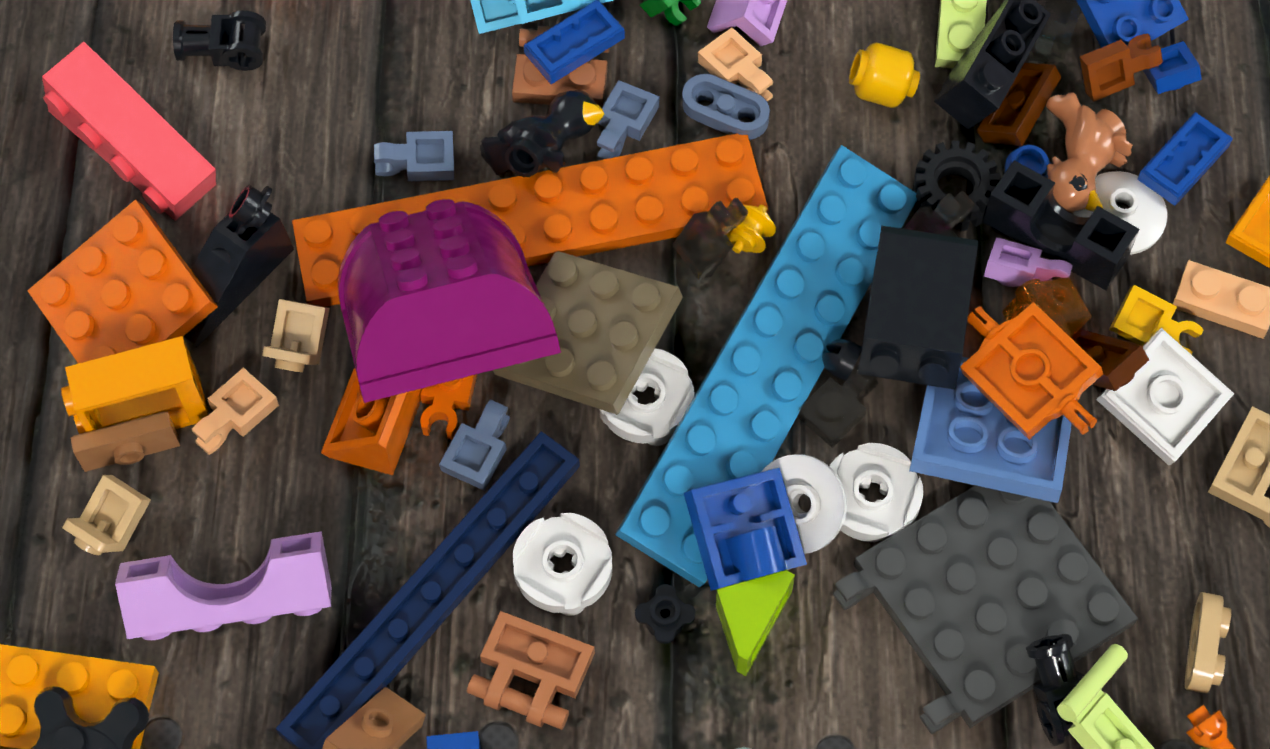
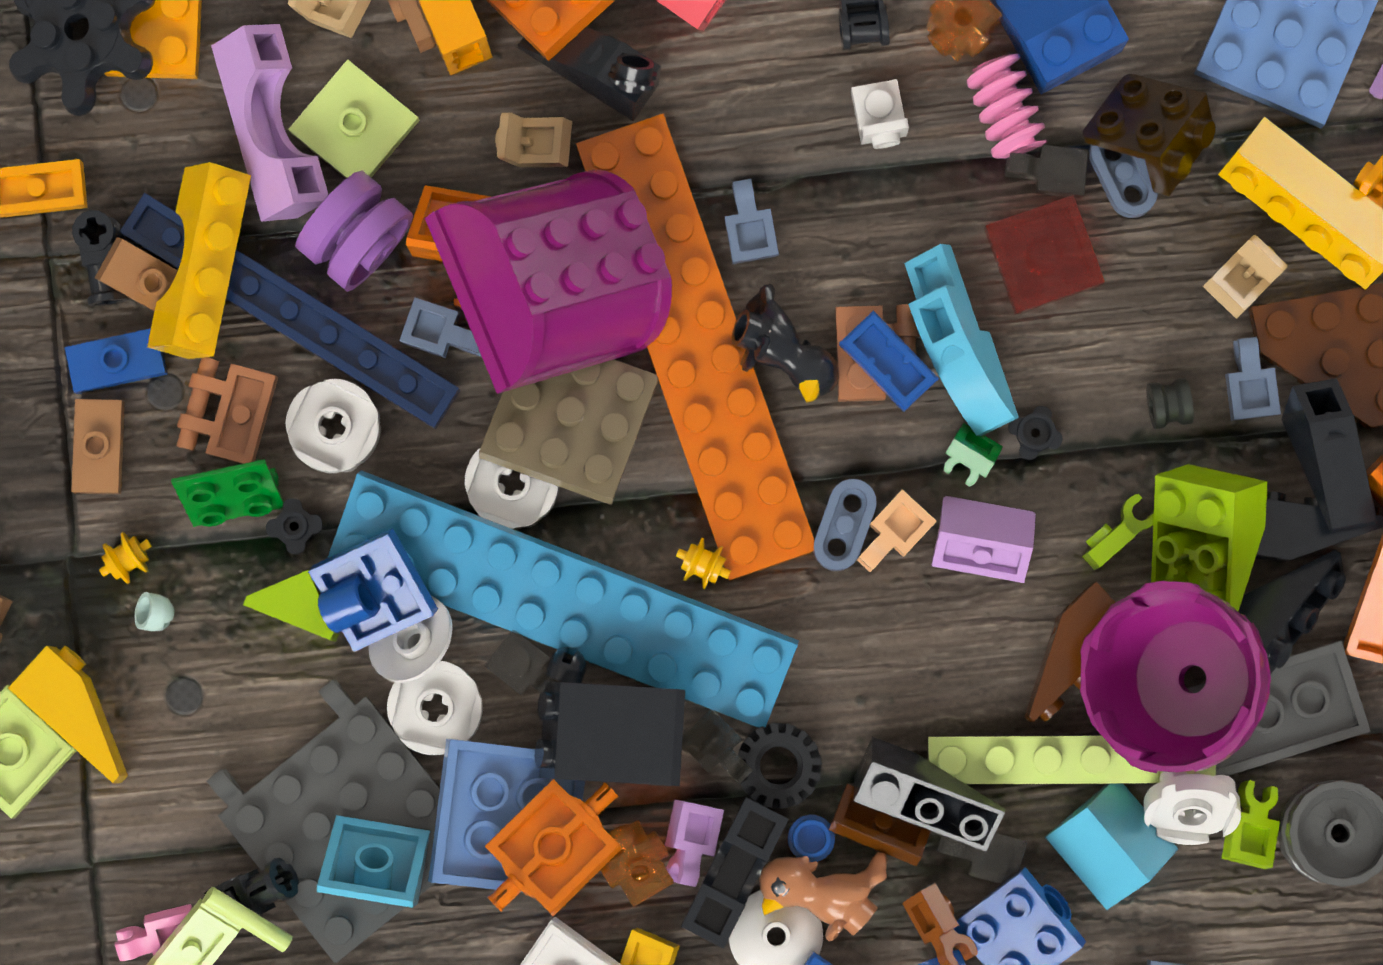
camera: 85 degrees right, 20 degrees up
(236, 406) = (457, 100): light nougat plate -> none
(241, 513) = (353, 123): none -> yellowish green plate
(331, 40) = (879, 114): none -> white bracket
(360, 504) = (354, 230): none -> medium lavender wheel
(420, 682) = (192, 309): none -> yellow arch
(621, 660) = (229, 493): none -> green hinge
(625, 114) = (822, 426): sand blue plate -> none
(704, 237) = (680, 522): clear smoke plate -> none
(884, 75) = (898, 683): yellow head -> none
(1037, 551) = (374, 862): none -> medium azure slope
(1116, 357) = (586, 916): reddish brown plate -> none

